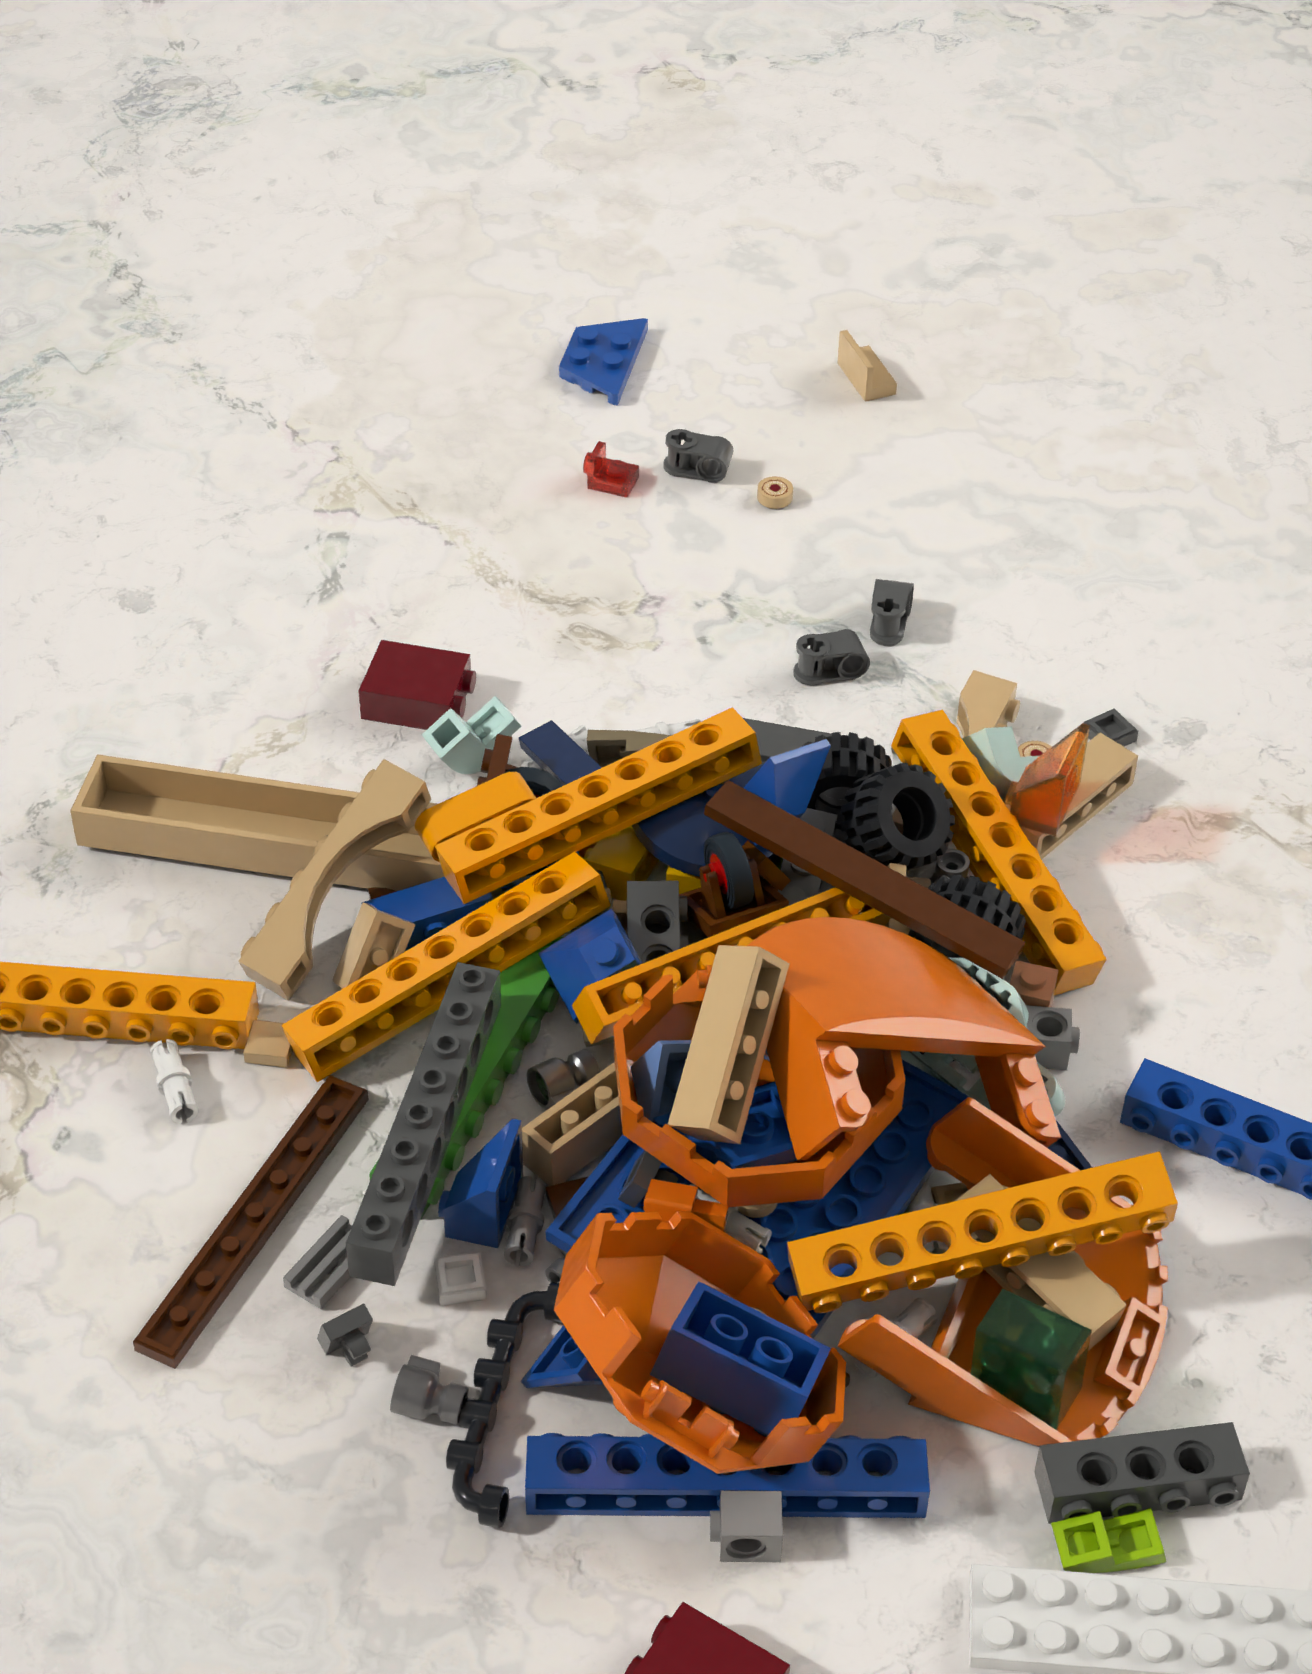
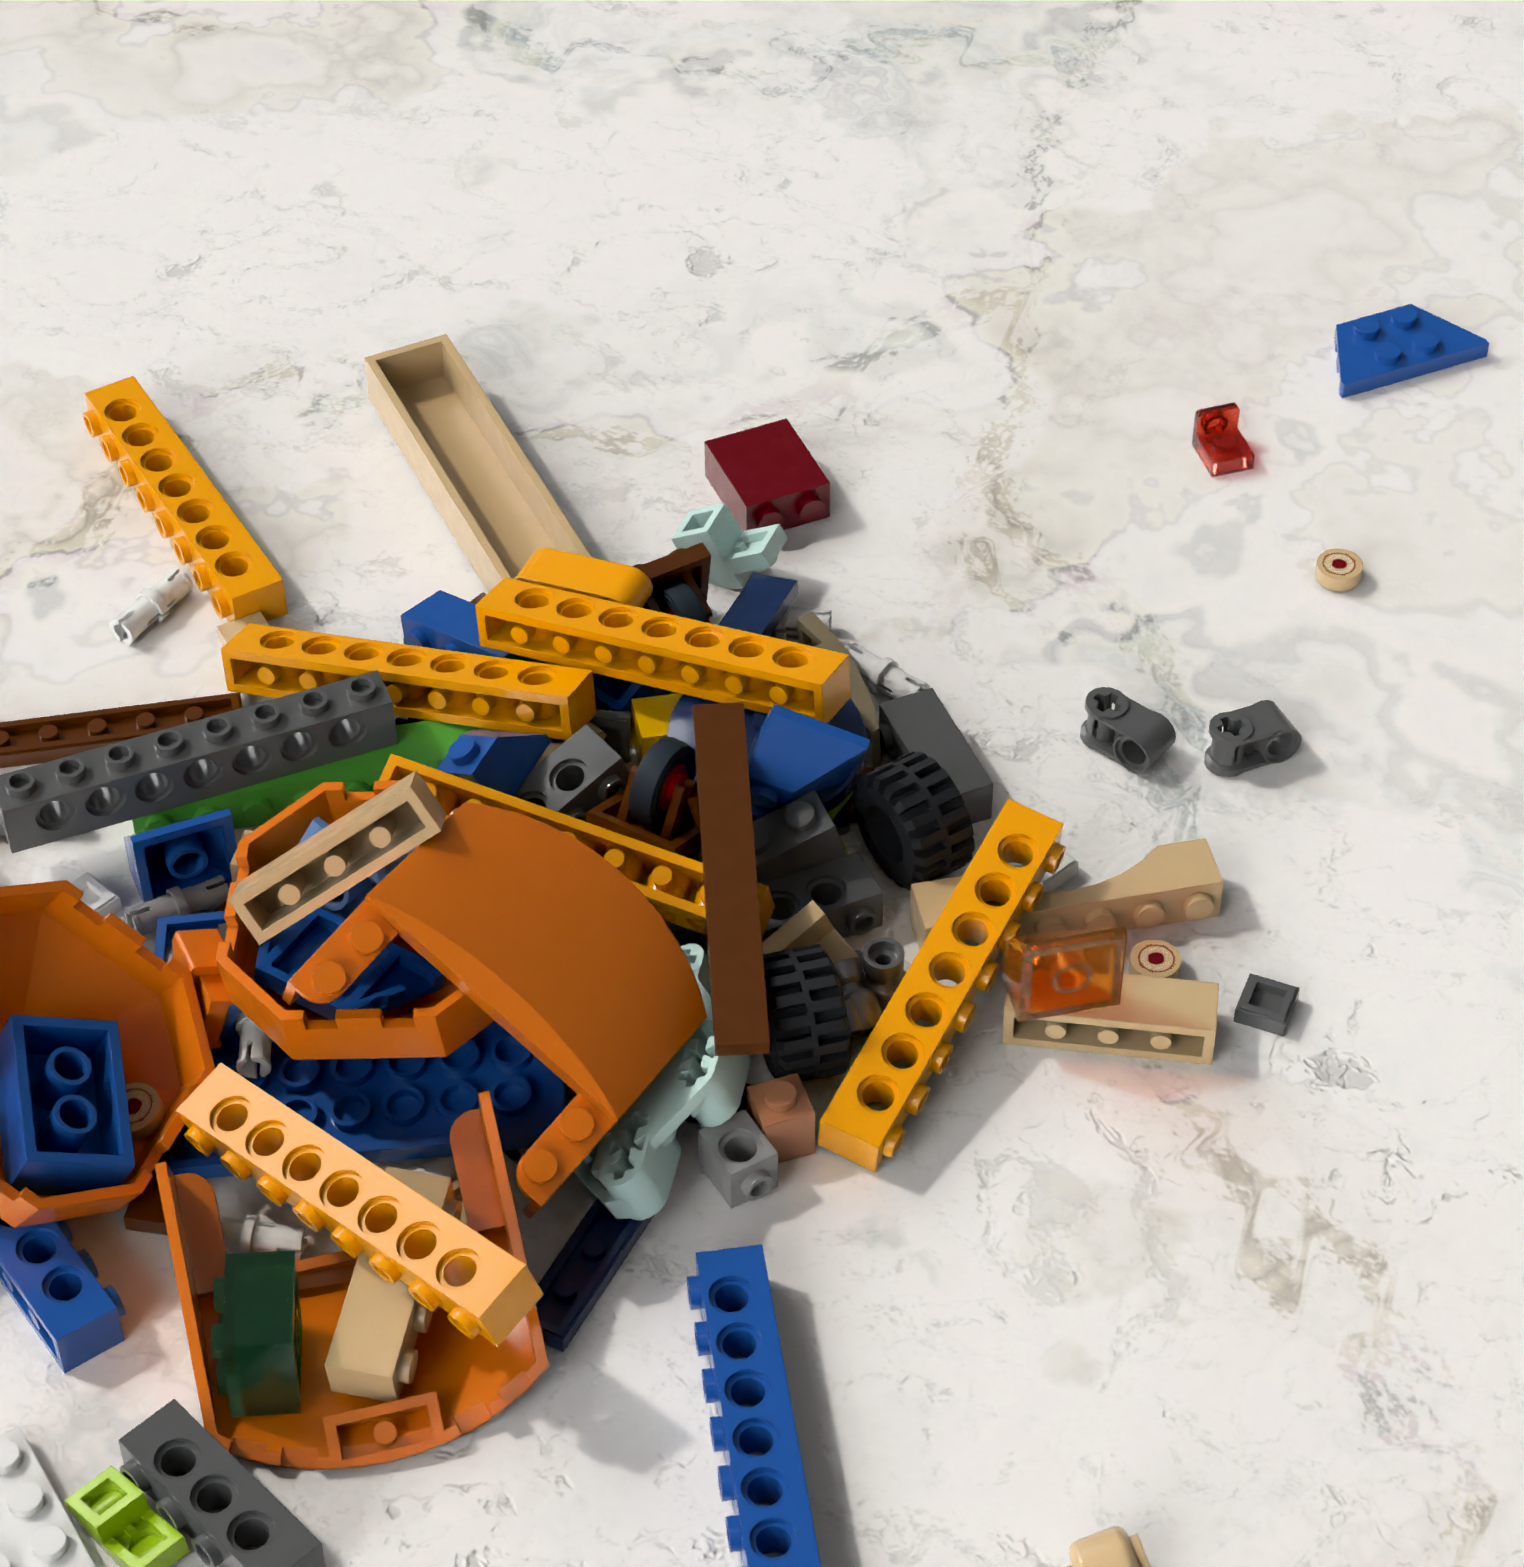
camera: 55 degrees right, 0 degrees up
(372, 942) = (397, 619): tan panel -> none
(382, 809) = (351, 572): tan arch -> none
(699, 456) = (1317, 484): dark grey piece -> none
(922, 809) = (830, 864): black tyre -> none
(998, 756) = (1075, 905): light aqua brick -> none

